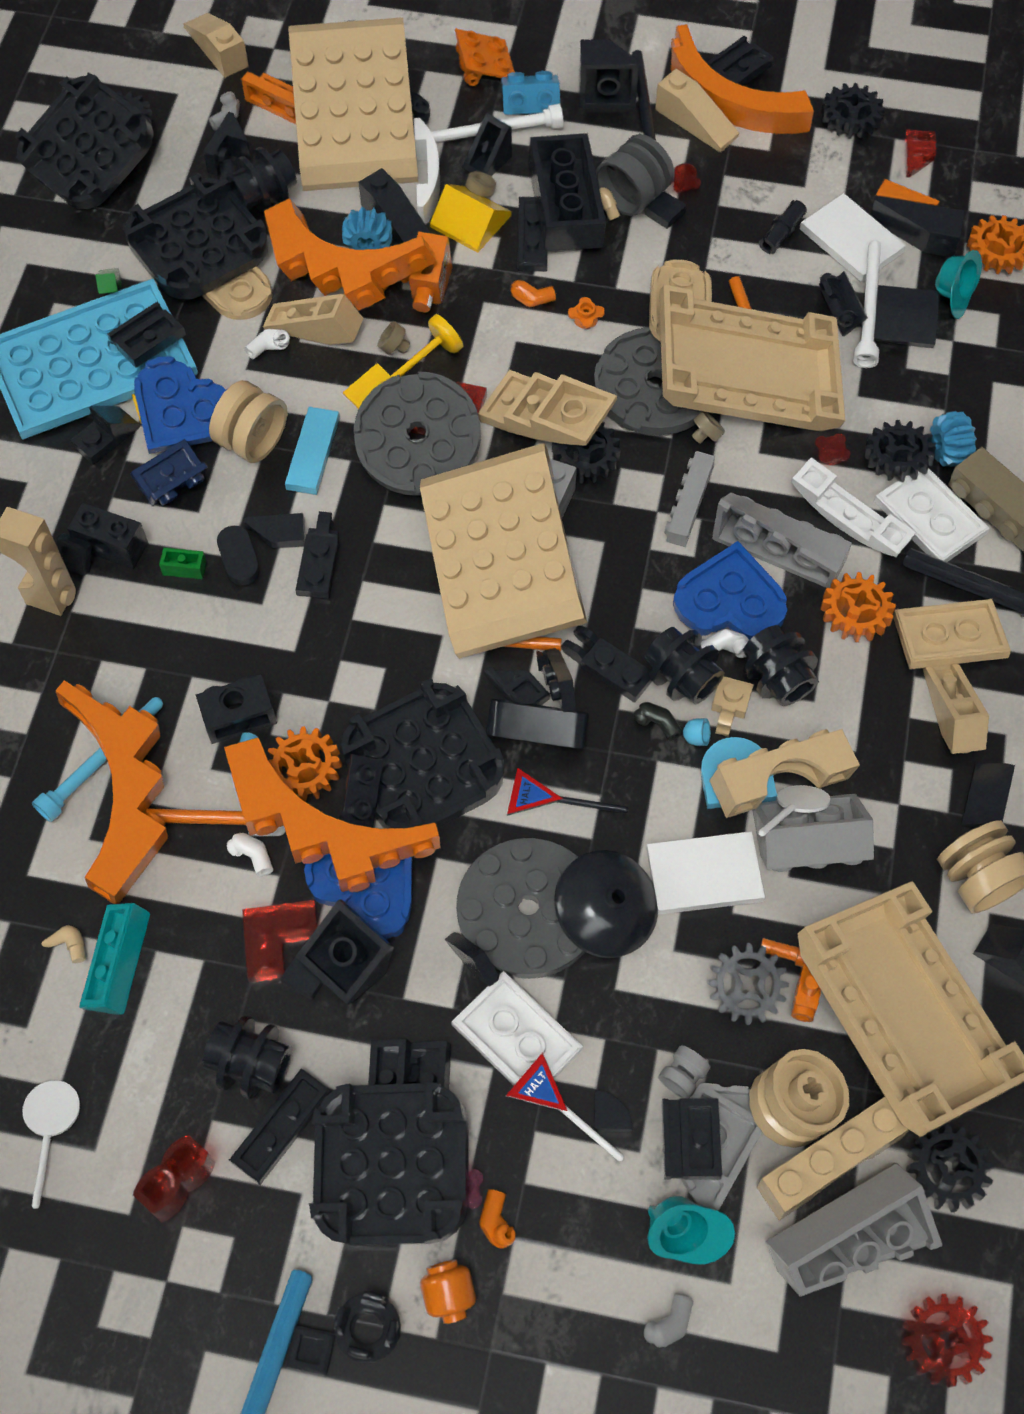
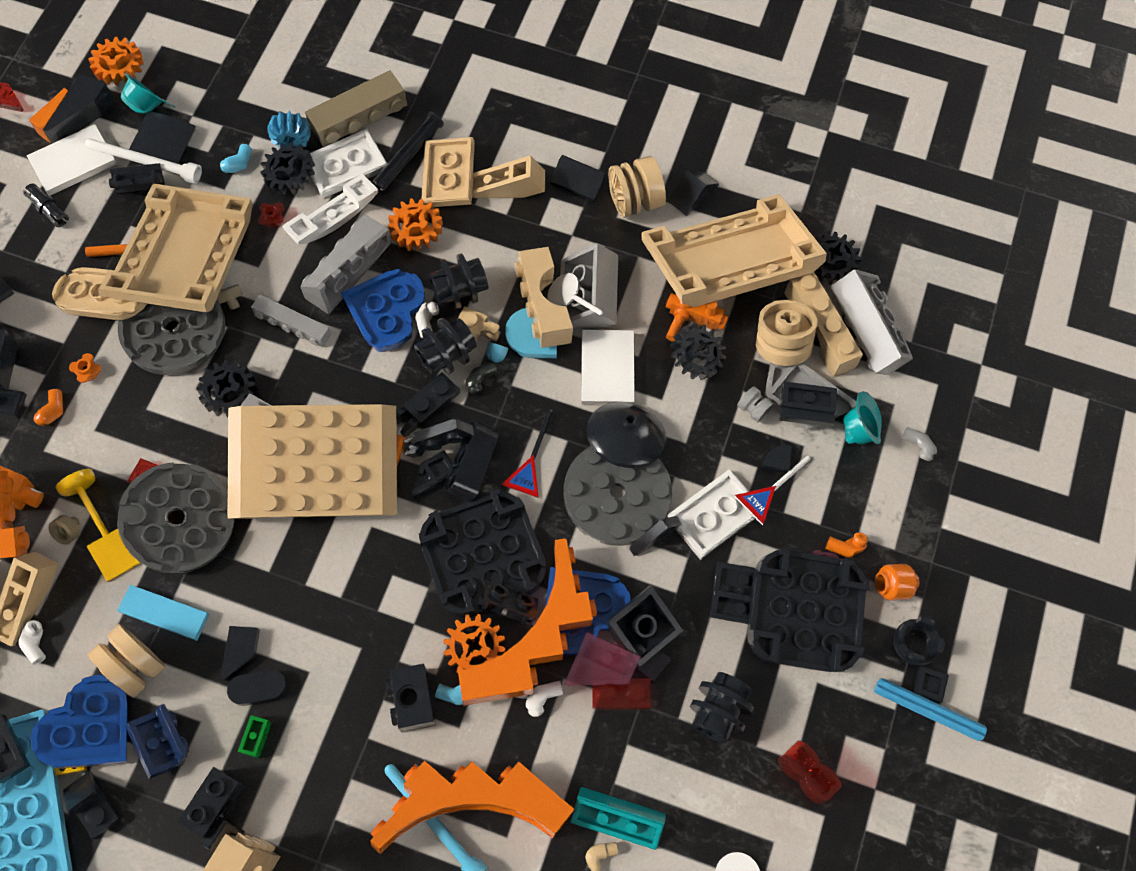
camera: 85 degrees left, 5 degrees up
(199, 816) = (503, 738): orange bar -> none
(279, 1127) = (769, 693): black tile -> none
(291, 906) = (601, 663): none -> clear pink wing
(318, 559) = (277, 617): black hinge -> none
(547, 408) = (181, 408): tan slope -> none
(897, 399) = (237, 162): none -> medium azure arm
(941, 1357) = (951, 287): clear red gear -> none

